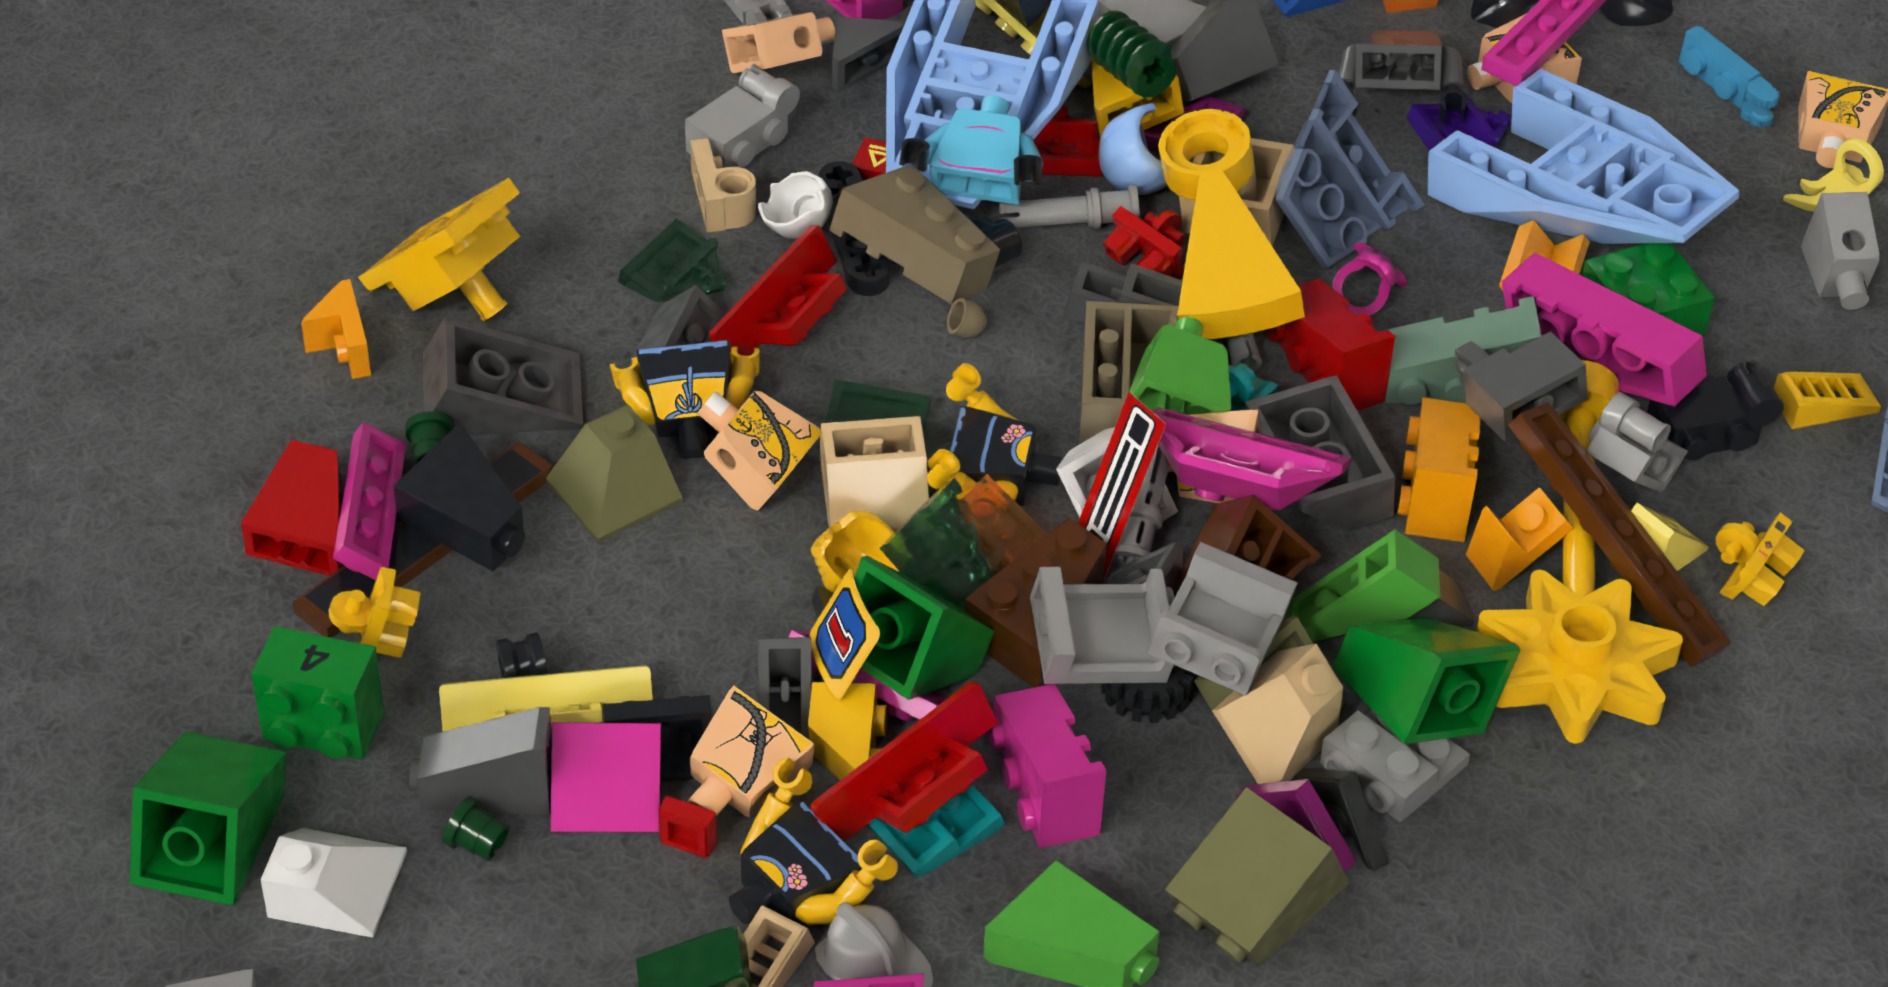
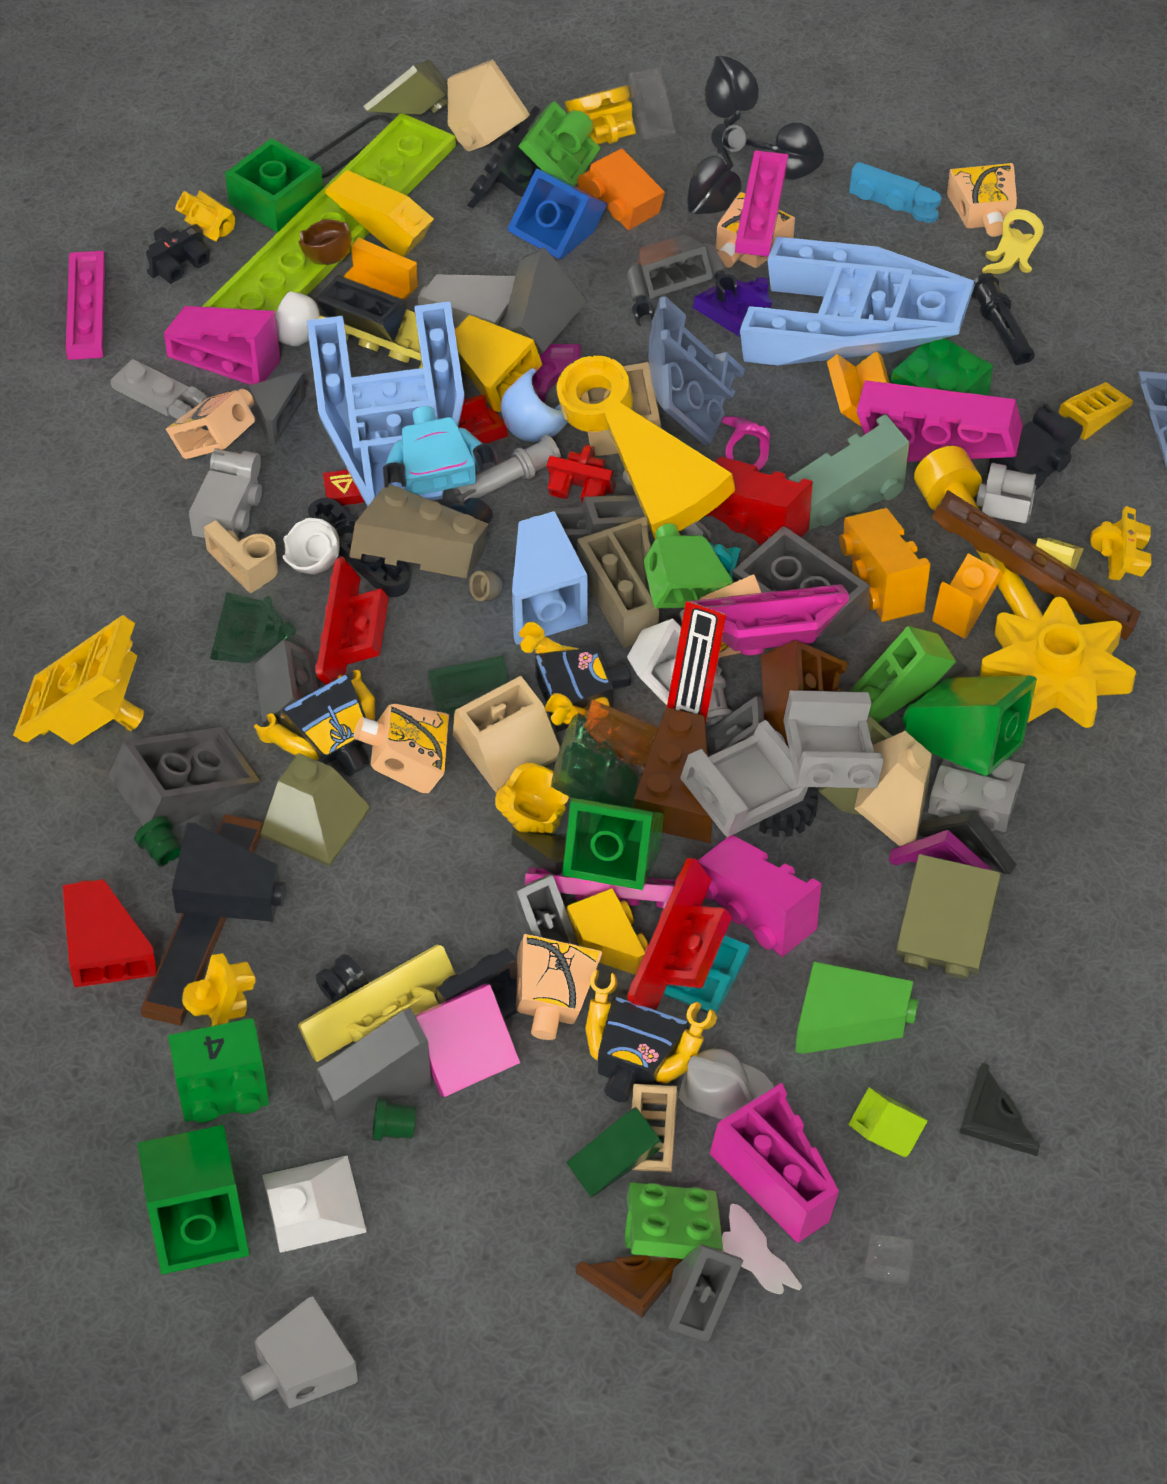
camera: 25 degrees left, 5 degrees up
(338, 325) = (31, 778): light orange slope -> none
(369, 501) = (151, 907): dark pink plate -> none
(687, 827) = (541, 1050): red tile -> none
(843, 637) = (577, 863): sticker -> none
(1021, 331) = (547, 578): none -> light blue slope
(1131, 54) = (495, 336): dark green piece -> none
(1514, 382) = (915, 484): dark grey hinge -> none
(1772, 244) = (1018, 347): none -> black pin
(1842, 247) = (1049, 295): light grey torso -> none

